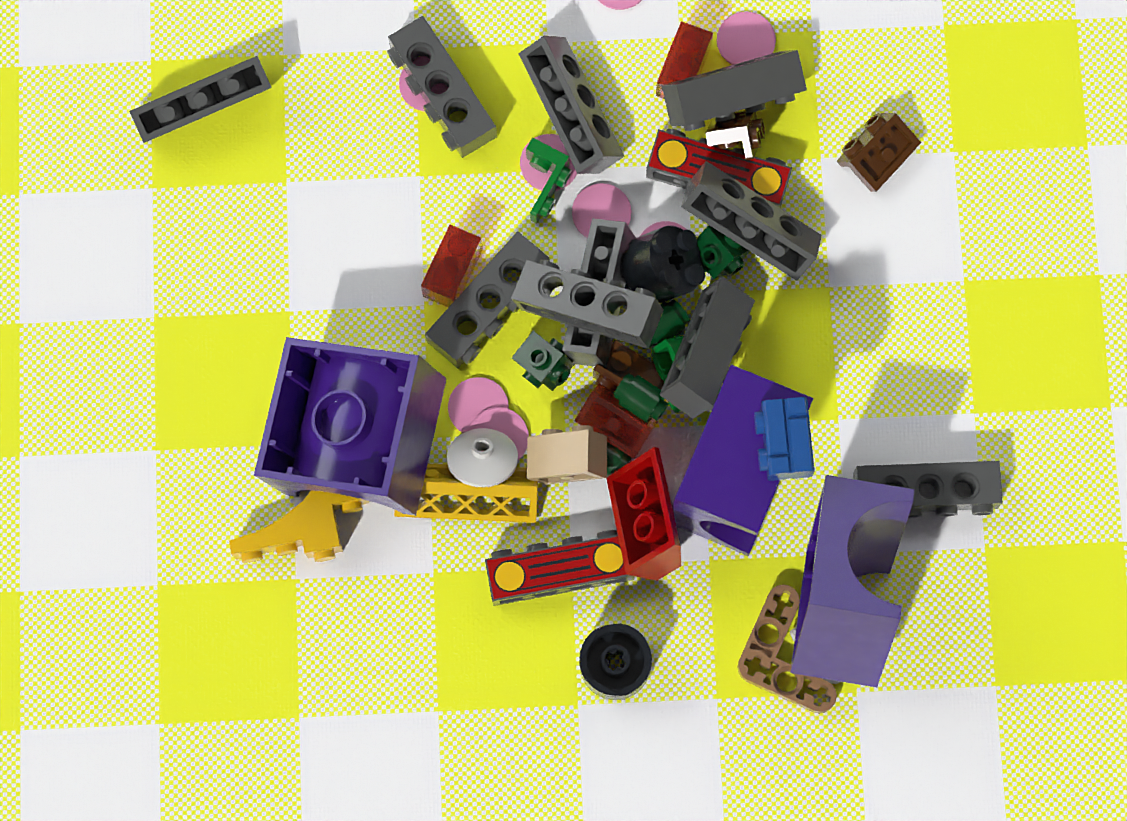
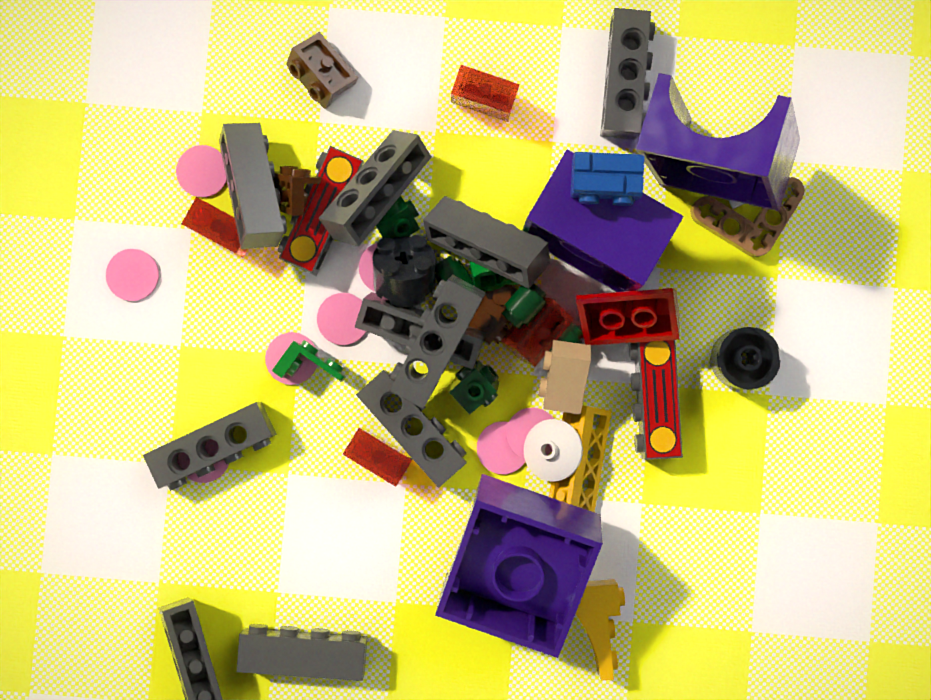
camera: 90 degrees left, 10 degrees up
(223, 214) = (302, 653): none -> dark grey brick
(571, 104) = (243, 332): dark grey brick -> none
(878, 329) = (484, 93): none -> clear red brick

